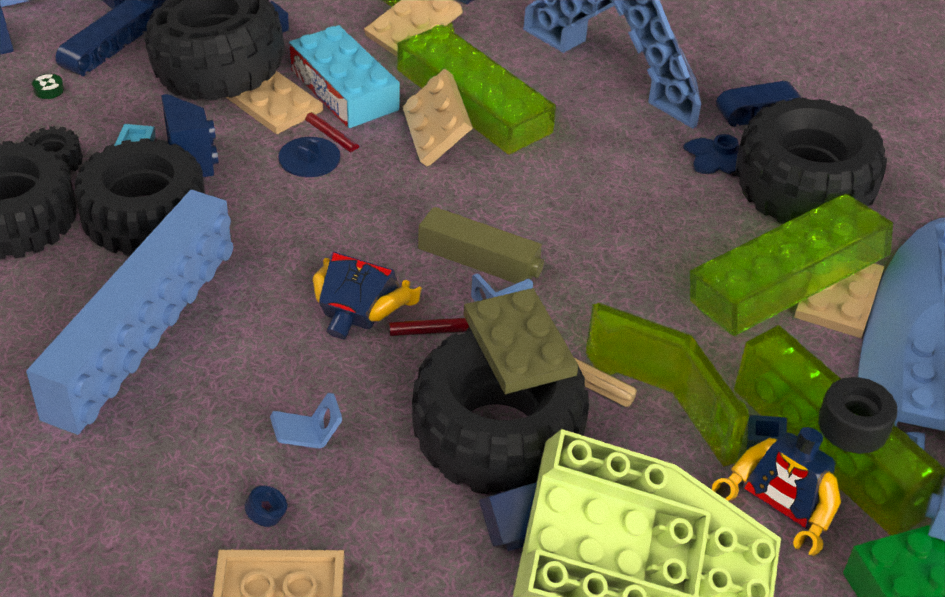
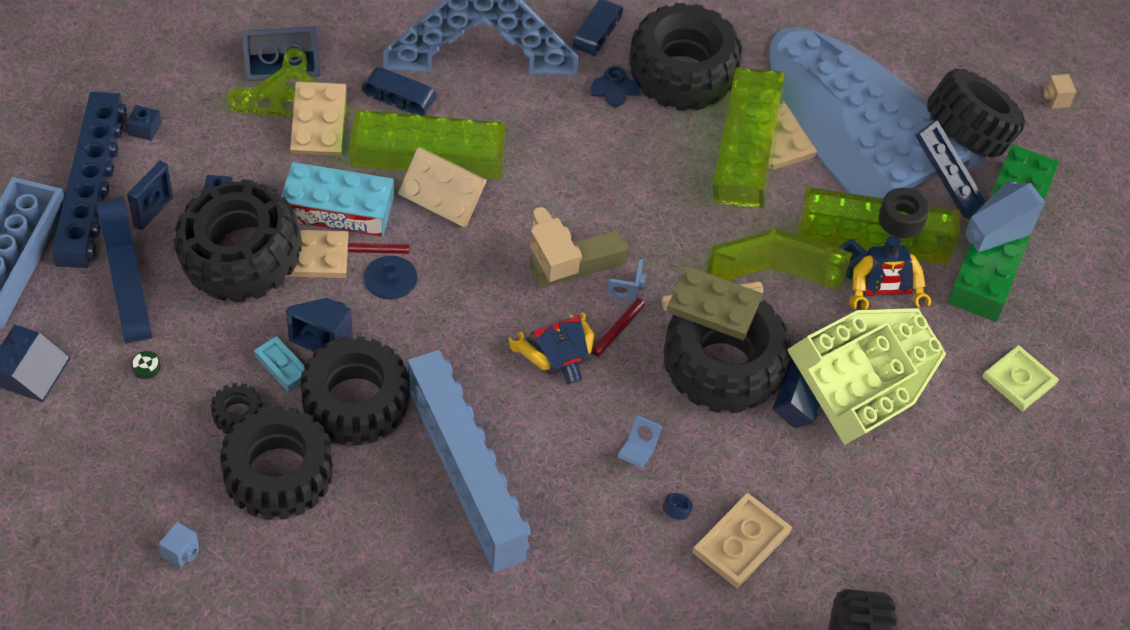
camera: 50 degrees left, 10 degrees up
(452, 207) = (553, 246): none -> tan hinge
(508, 43) = (399, 91): none -> dark blue beam

